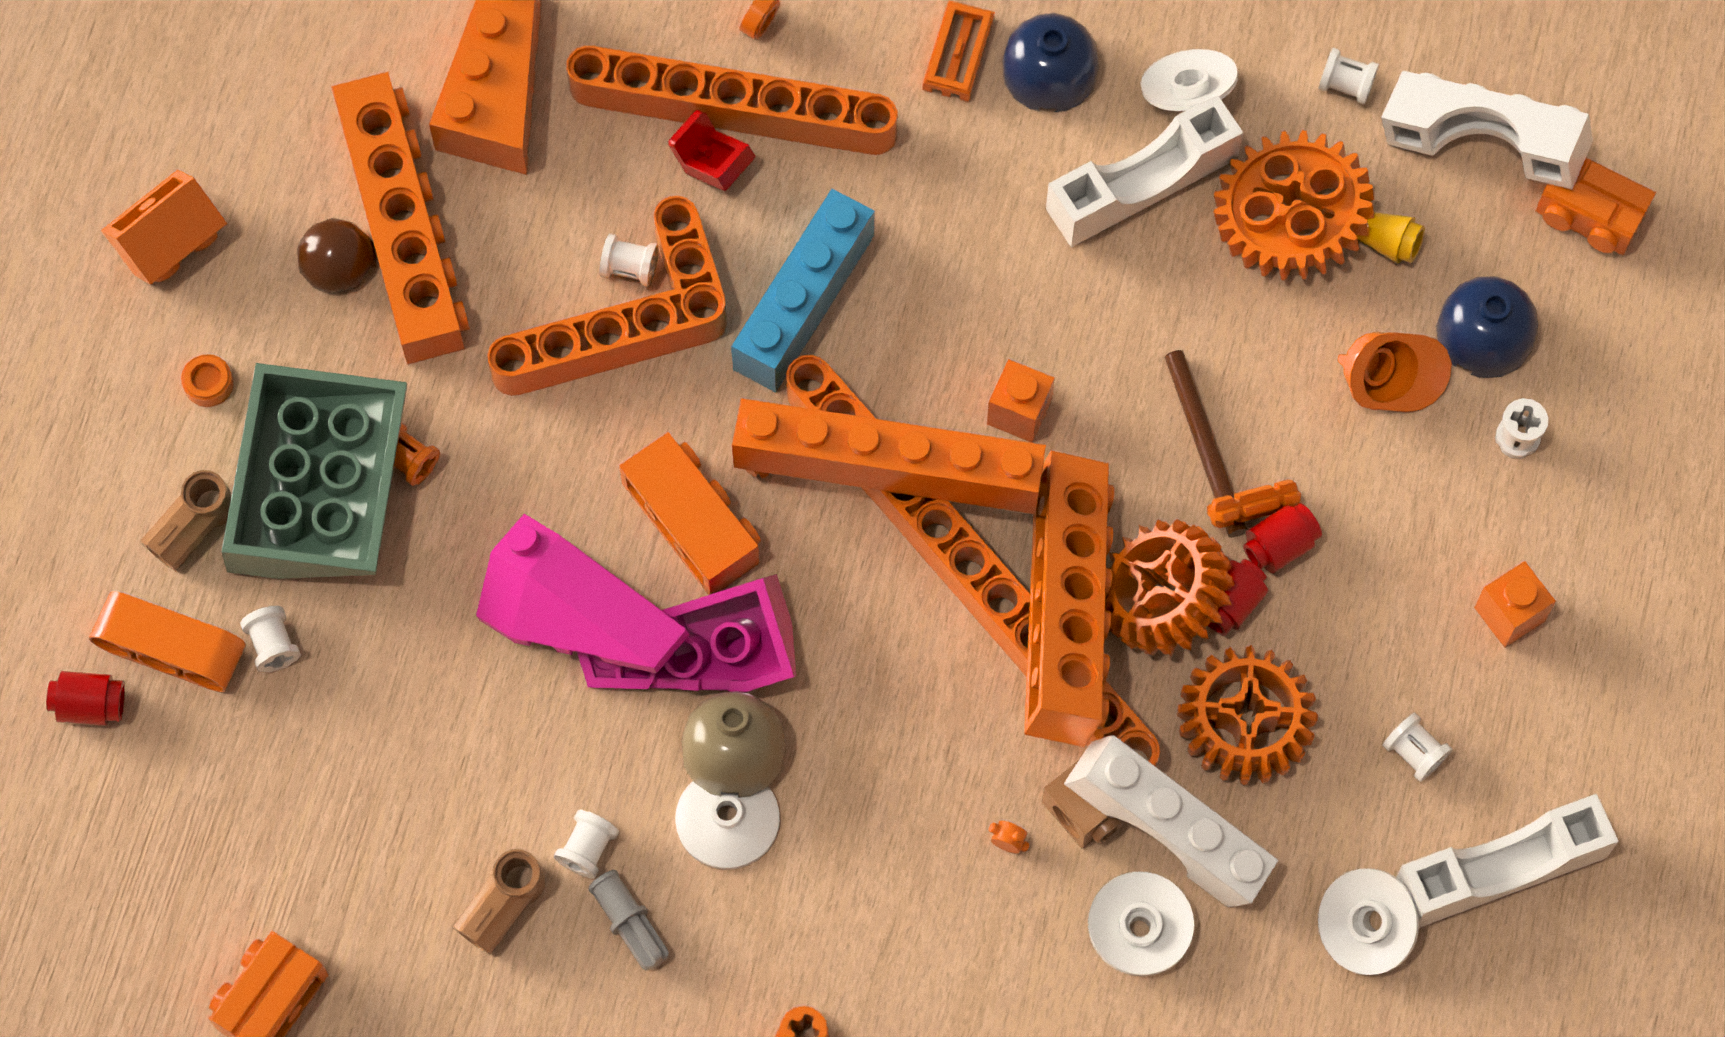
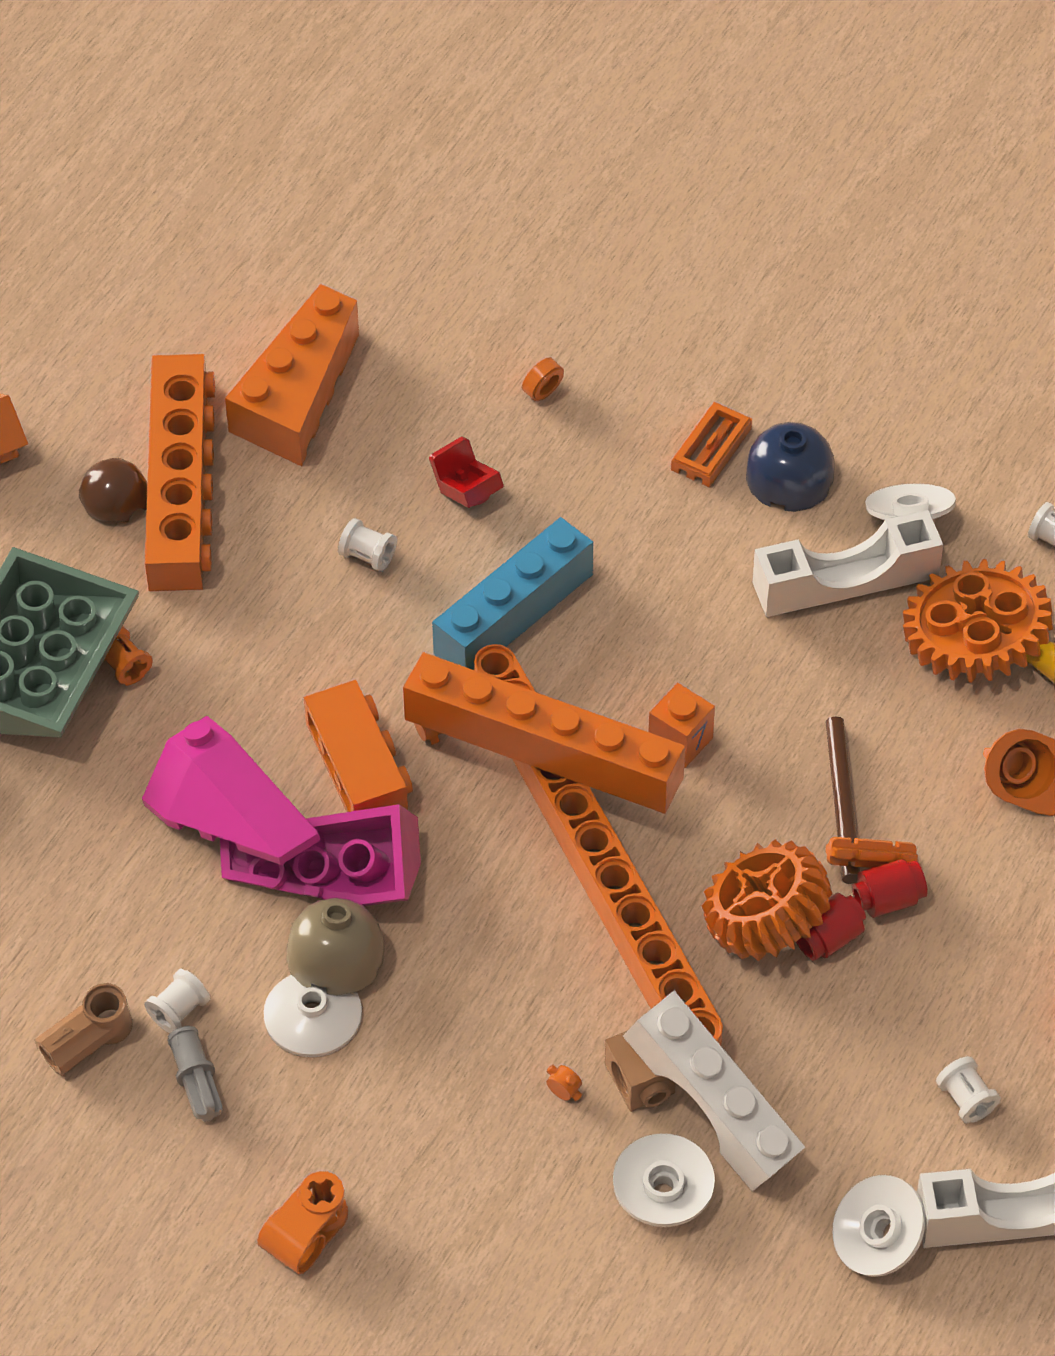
camera: 15 degrees right, 15 degrees down
(625, 319) = (344, 599): orange beam -> none
(715, 84) = (500, 439): orange beam -> none
(1069, 601) = (671, 887): orange brick -> none
(1267, 715) = (836, 1046): orange gear -> none

